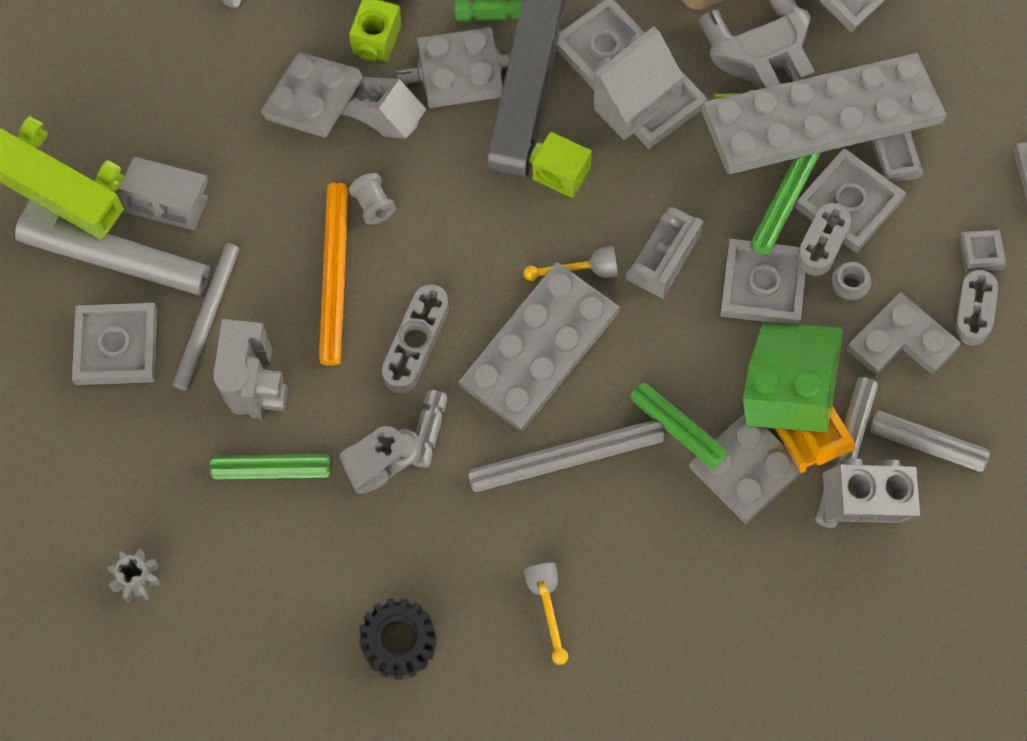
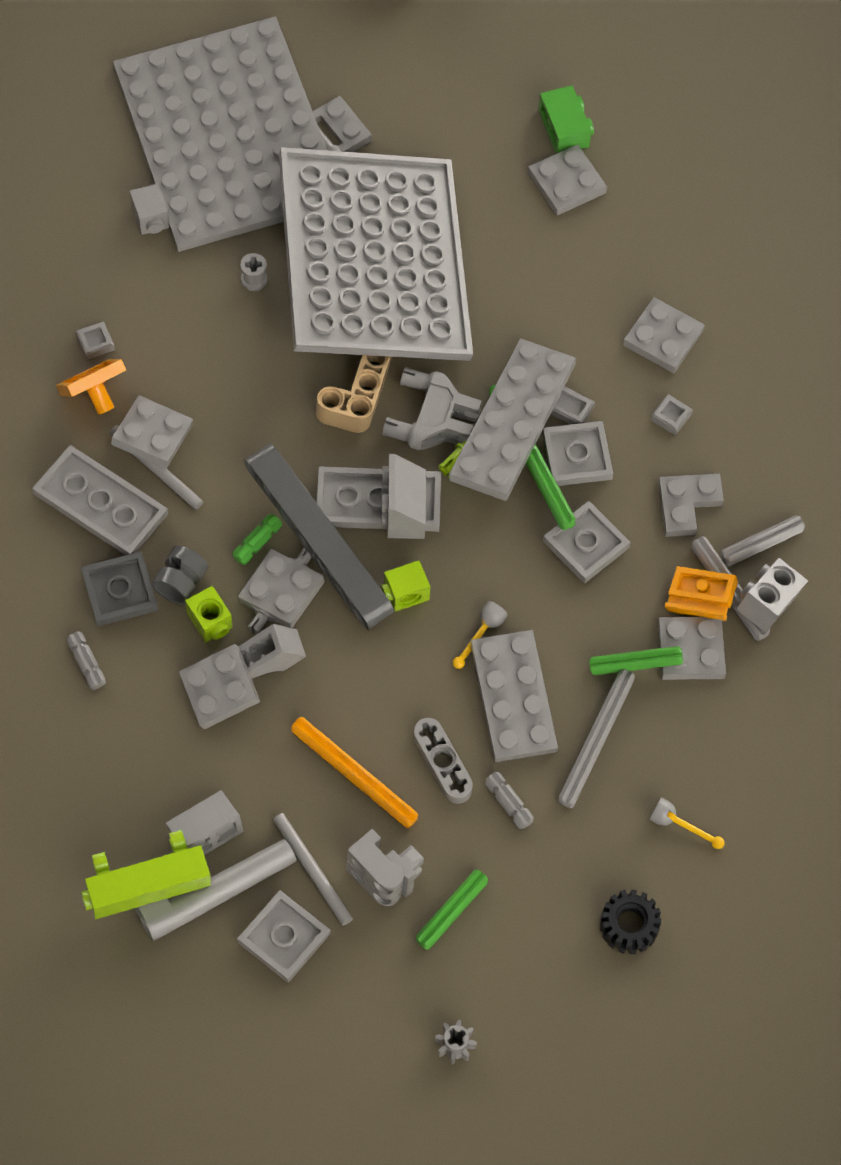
camera: 55 degrees left, 5 degrees down
(372, 198) = (326, 709): light grey bush -> none
(379, 457) = (506, 845): light grey piece -> none
(665, 252) = (517, 577): light grey hinge -> none
(792, 377) = (665, 573): bright green slope -> none
(831, 243) = (599, 483): light grey beam -> none
(853, 271) = (627, 489): light grey plate -> none
(967, 306) = (701, 449): light grey beam -> none

